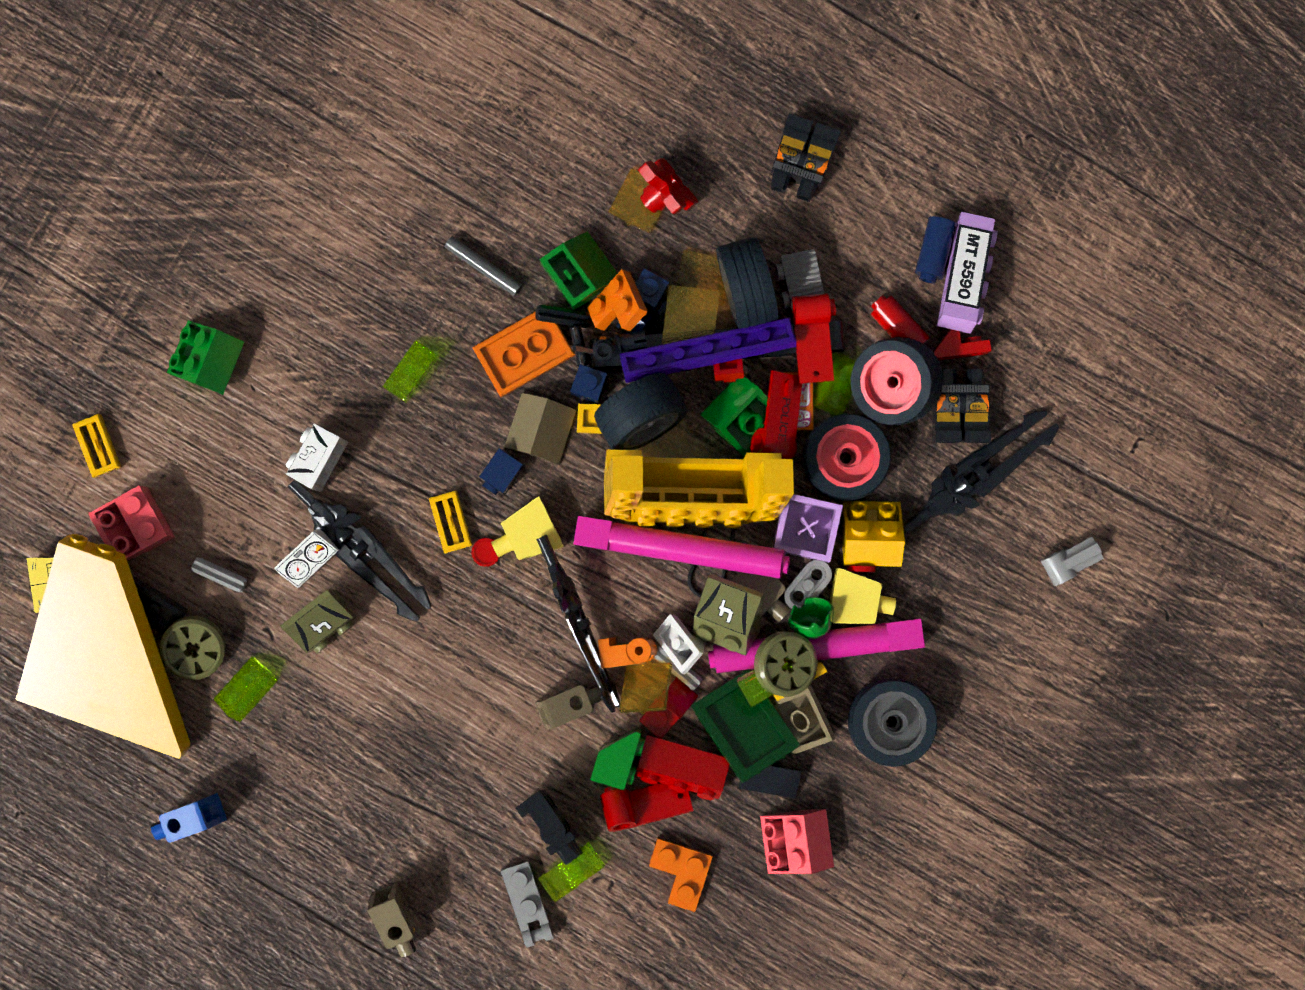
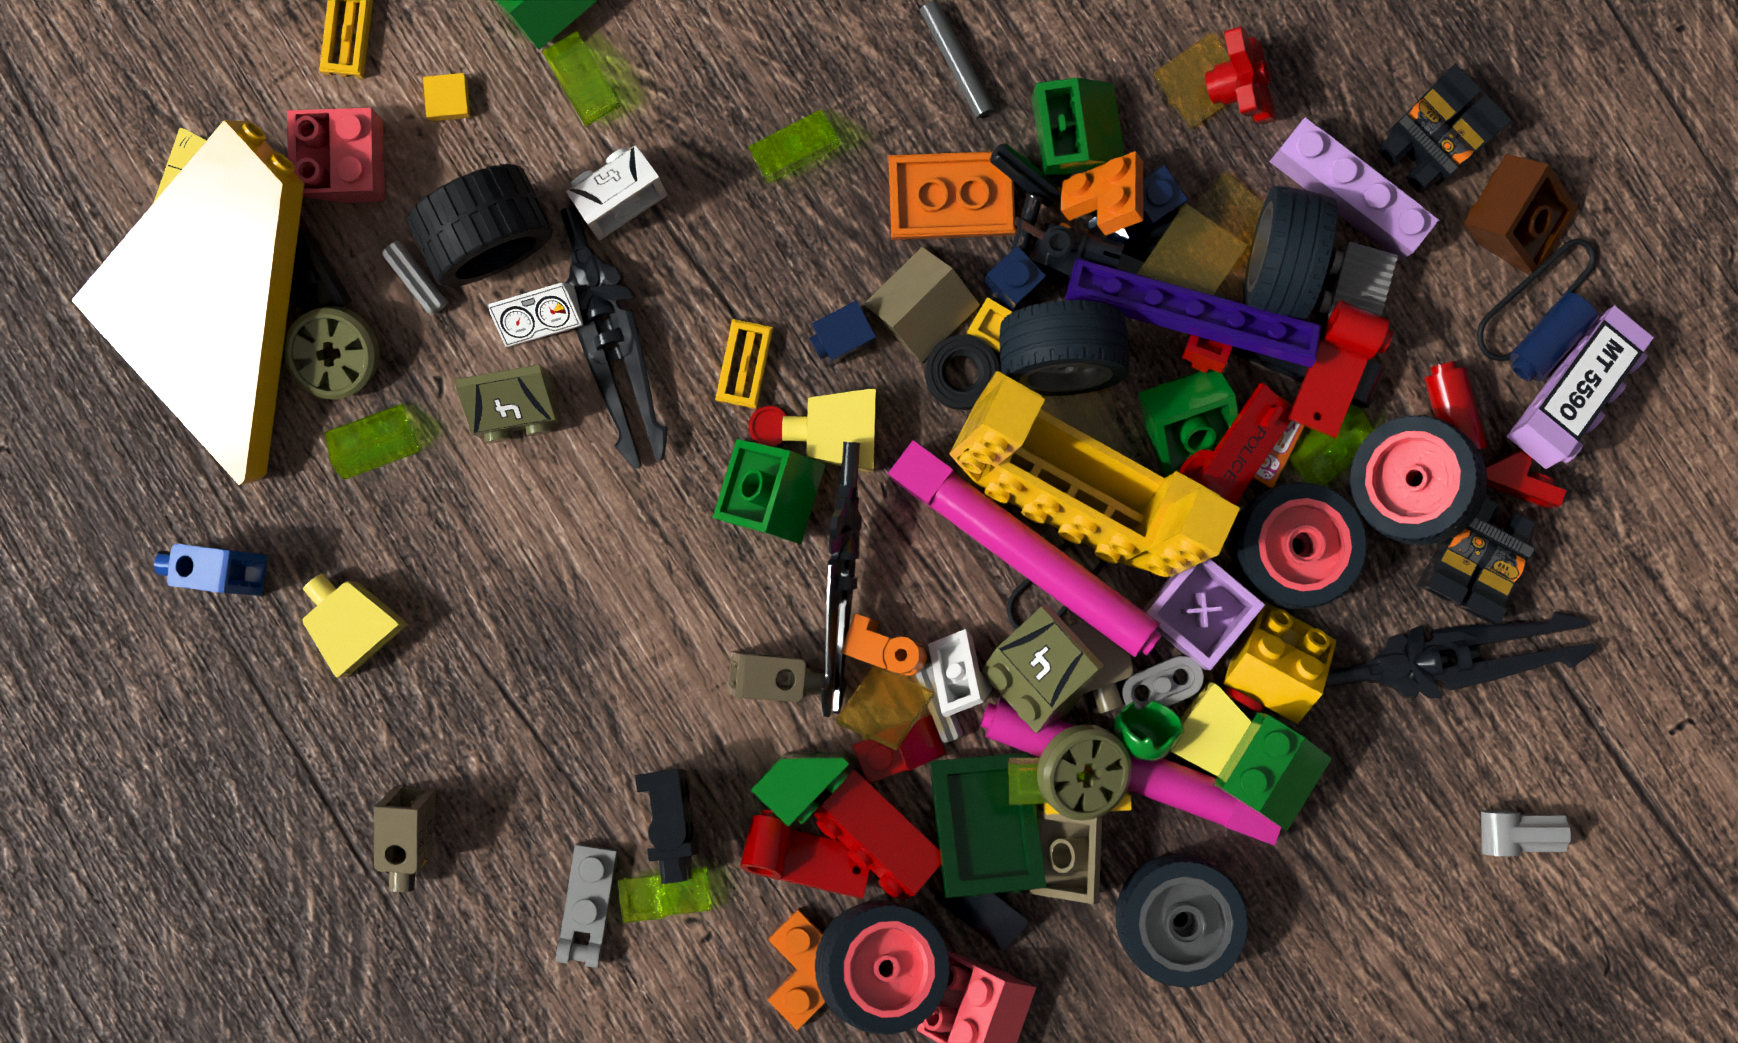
camera: 30 degrees right, 0 degrees up
(179, 452) = (446, 97): none -> yellow tile
(244, 523) = (479, 225): none -> black tyre
(257, 398) = (581, 78): none -> clear neon green slope
(290, 808) = (348, 623): none -> light yellow torso
(506, 592) = (769, 490): none -> green slope
(569, 451) = (940, 357): none -> black tyre
(704, 850) = (850, 963): none -> wheel
(767, 222) = (1360, 192): none -> lavender brick
(877, 183) = (1521, 213): none -> reddish brown slope
(900, 603) = (1273, 770): none -> green slope
(933, 183) = (1592, 256): none -> black piece

